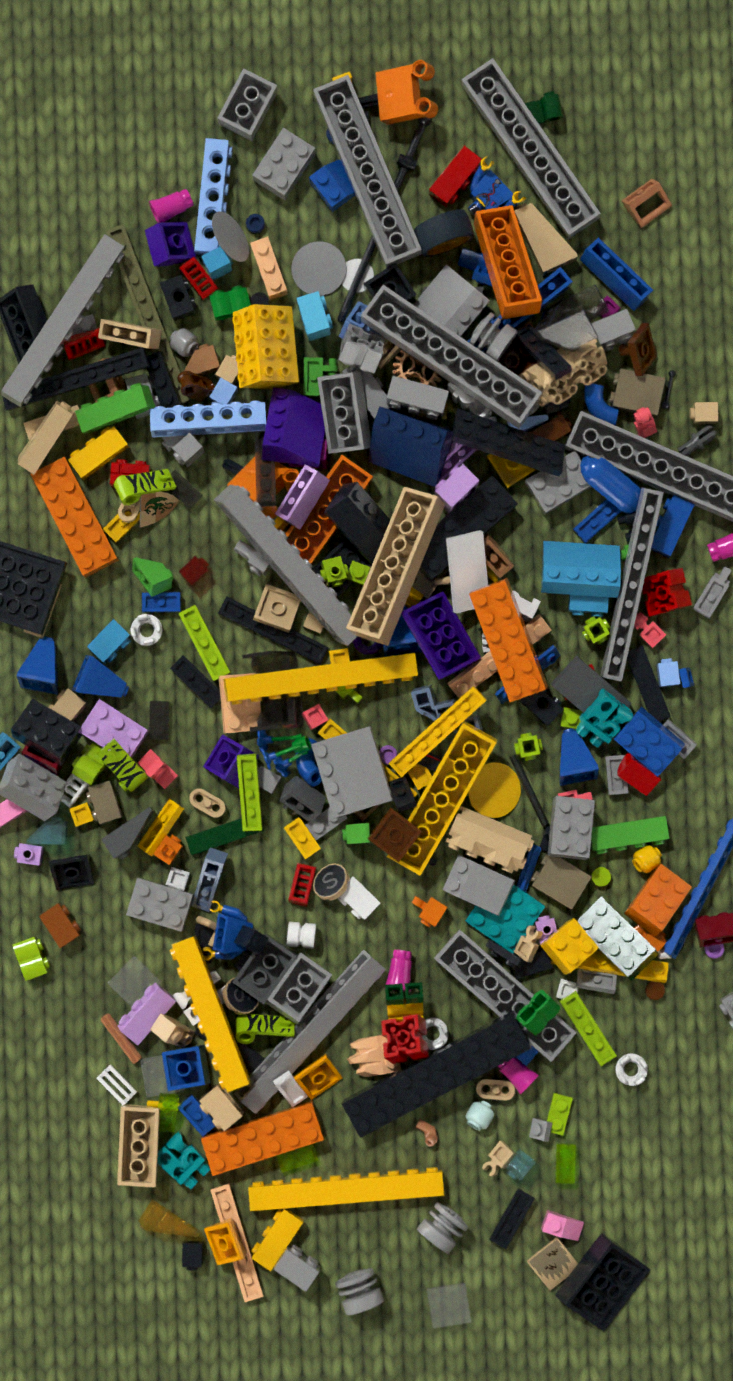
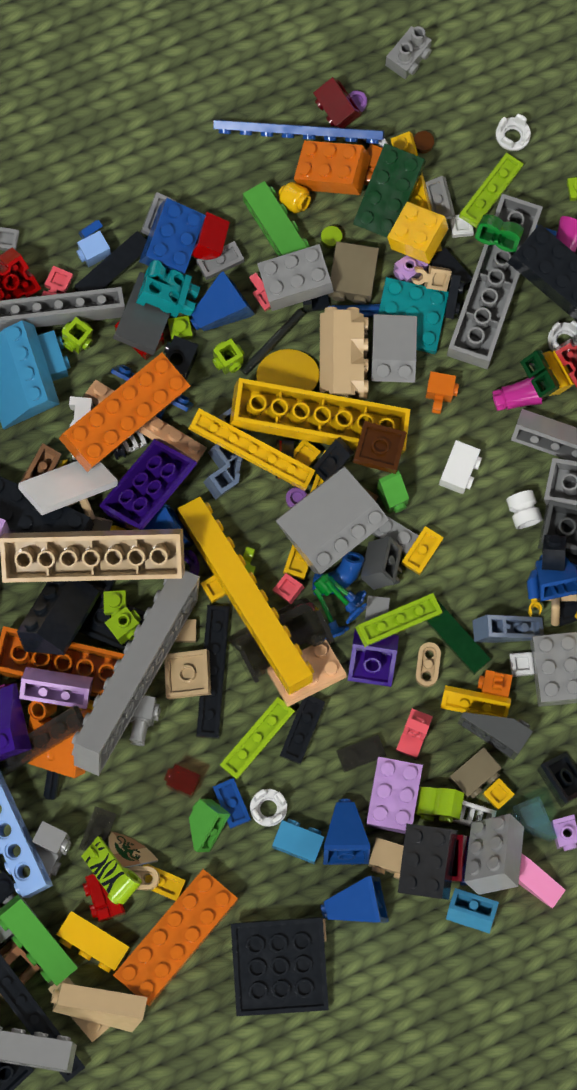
camera: 120 degrees left, 10 degrees down
(122, 765) = (428, 767): lime door -> none
(299, 901) = (470, 523): red slope -> none
(331, 882) = (455, 500): tile -> none

